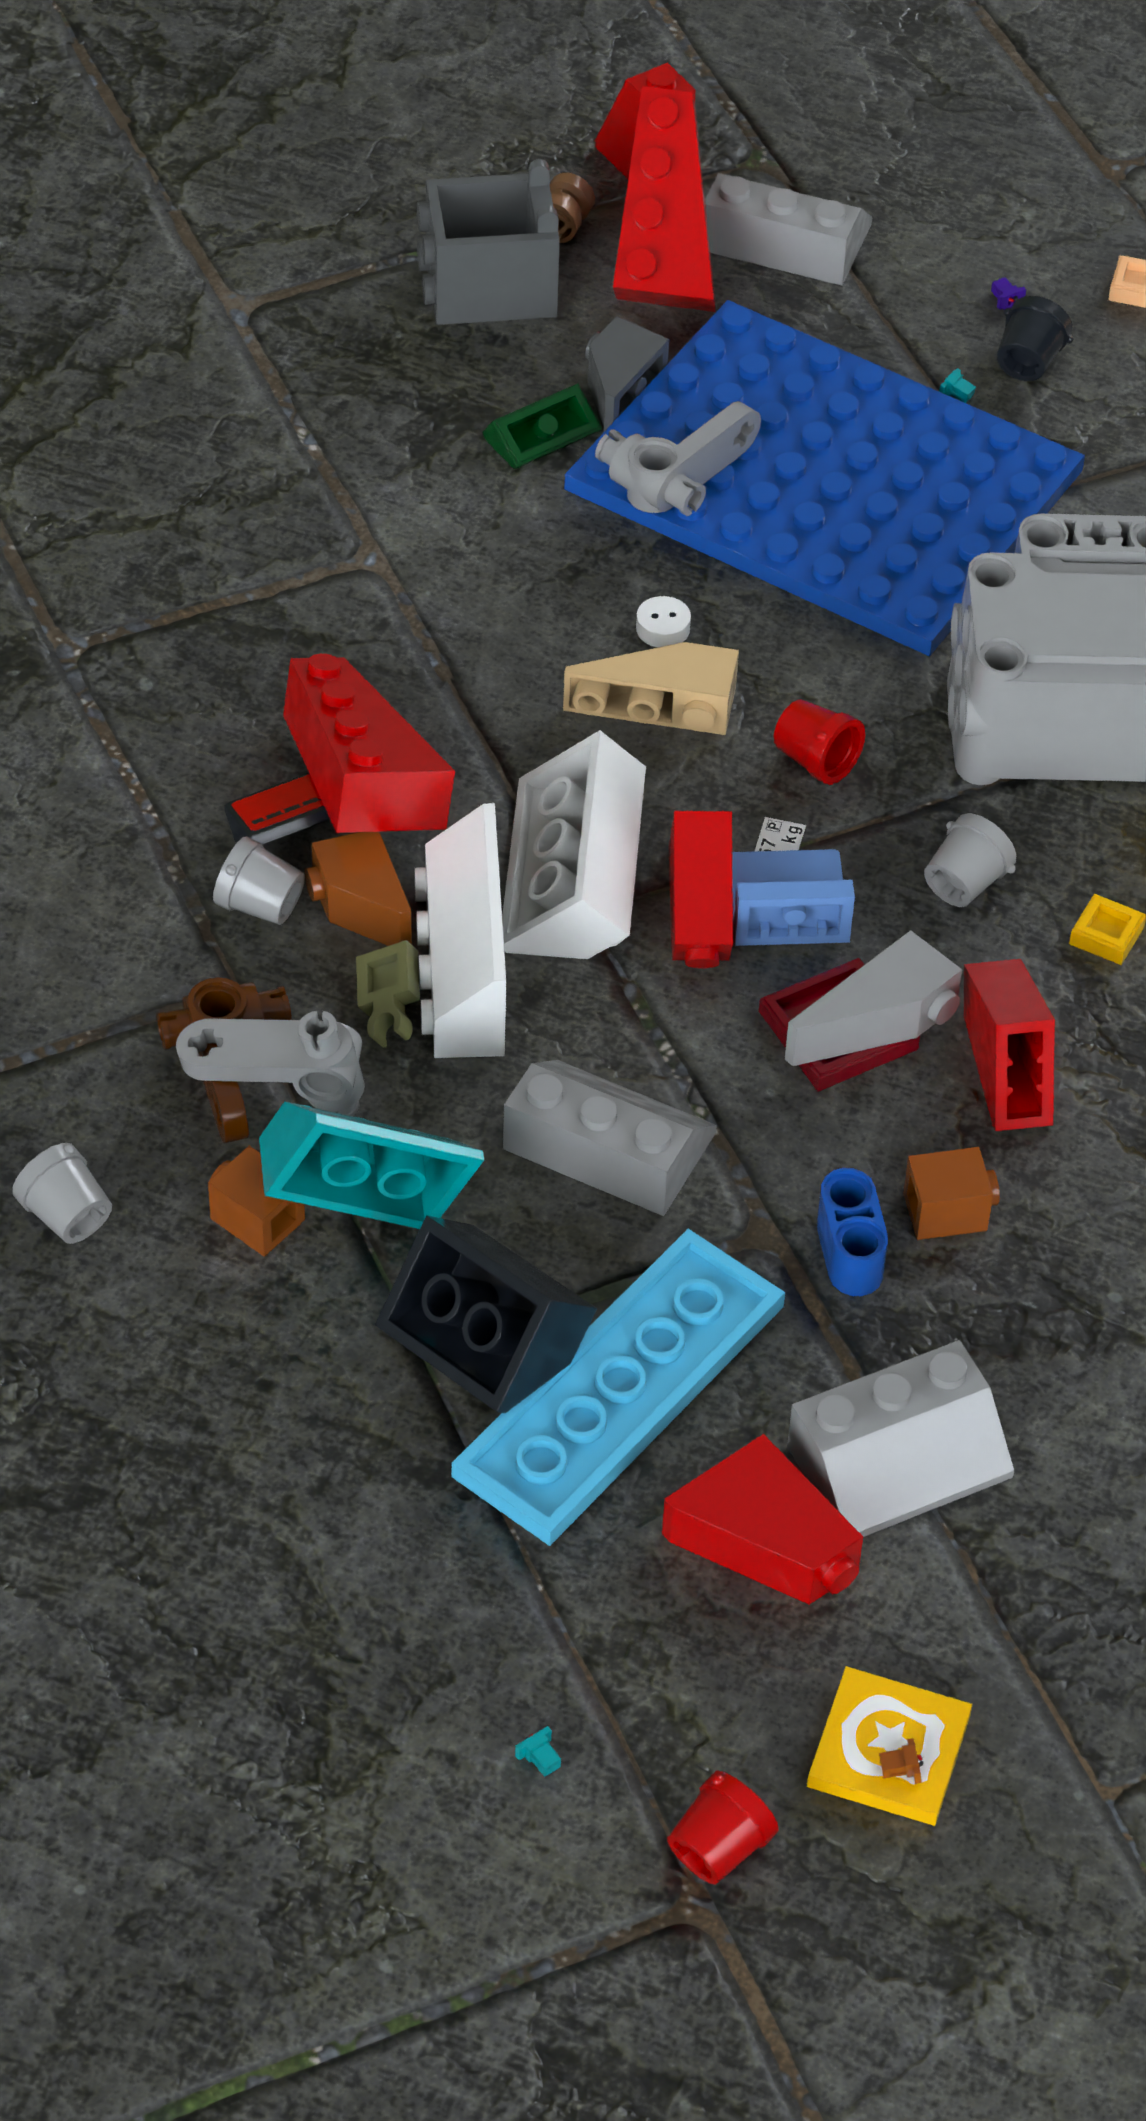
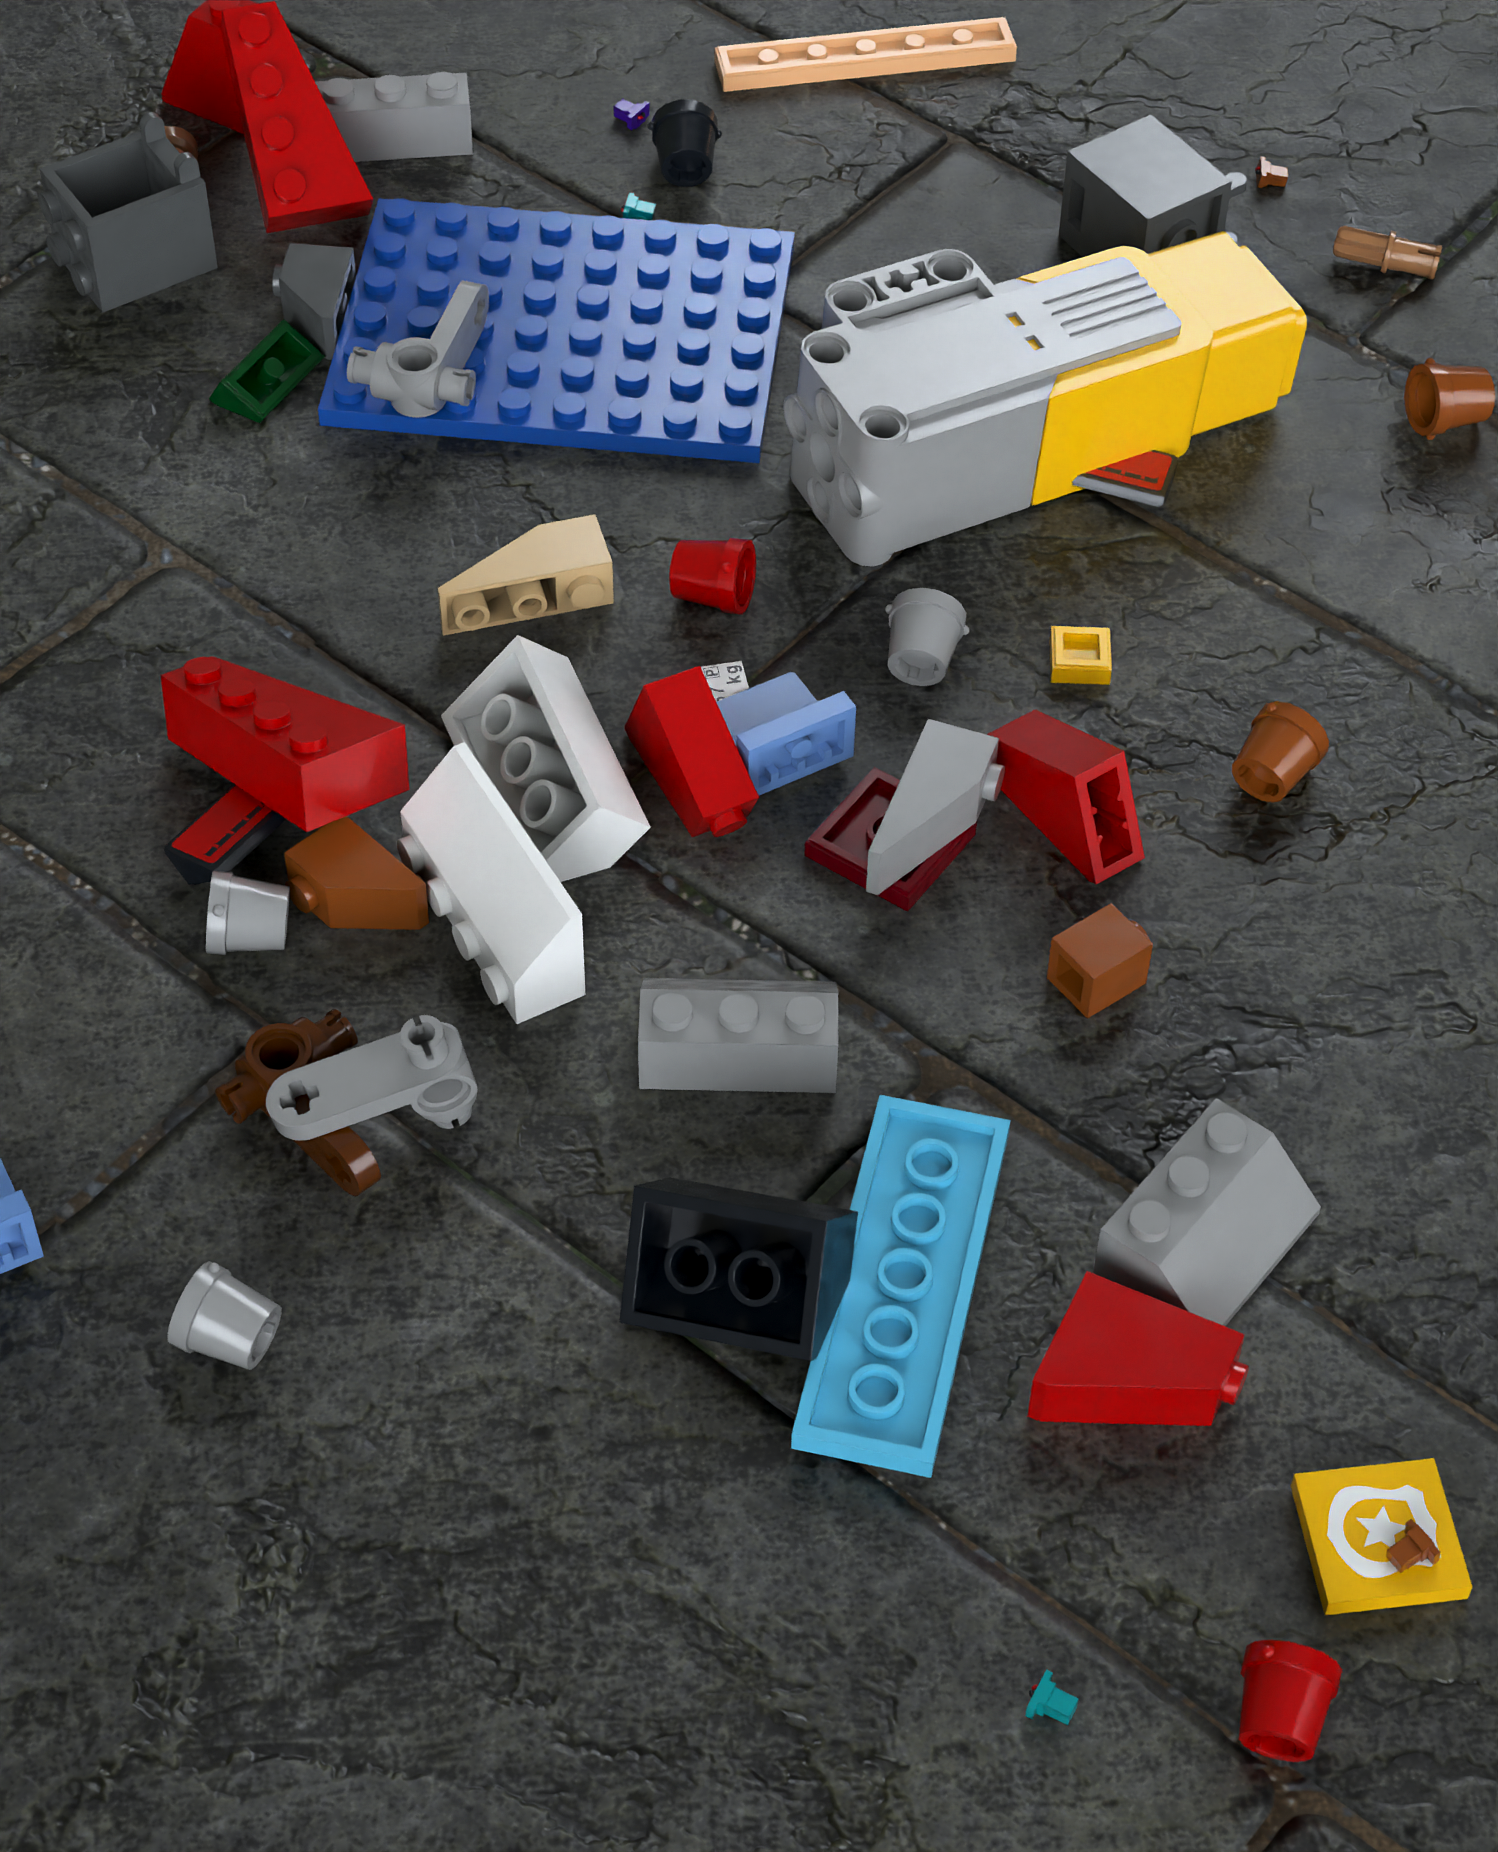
camera: 25 degrees left, 0 degrees up
(244, 1211) = (428, 1242): dark orange brick -> none
(362, 1165) = (534, 1160): teal slope -> none
(385, 985) = (434, 969): olive plate -> none
(663, 621) = (493, 516): white tile -> none
(852, 1232) = (1034, 1034): blue beam -> none

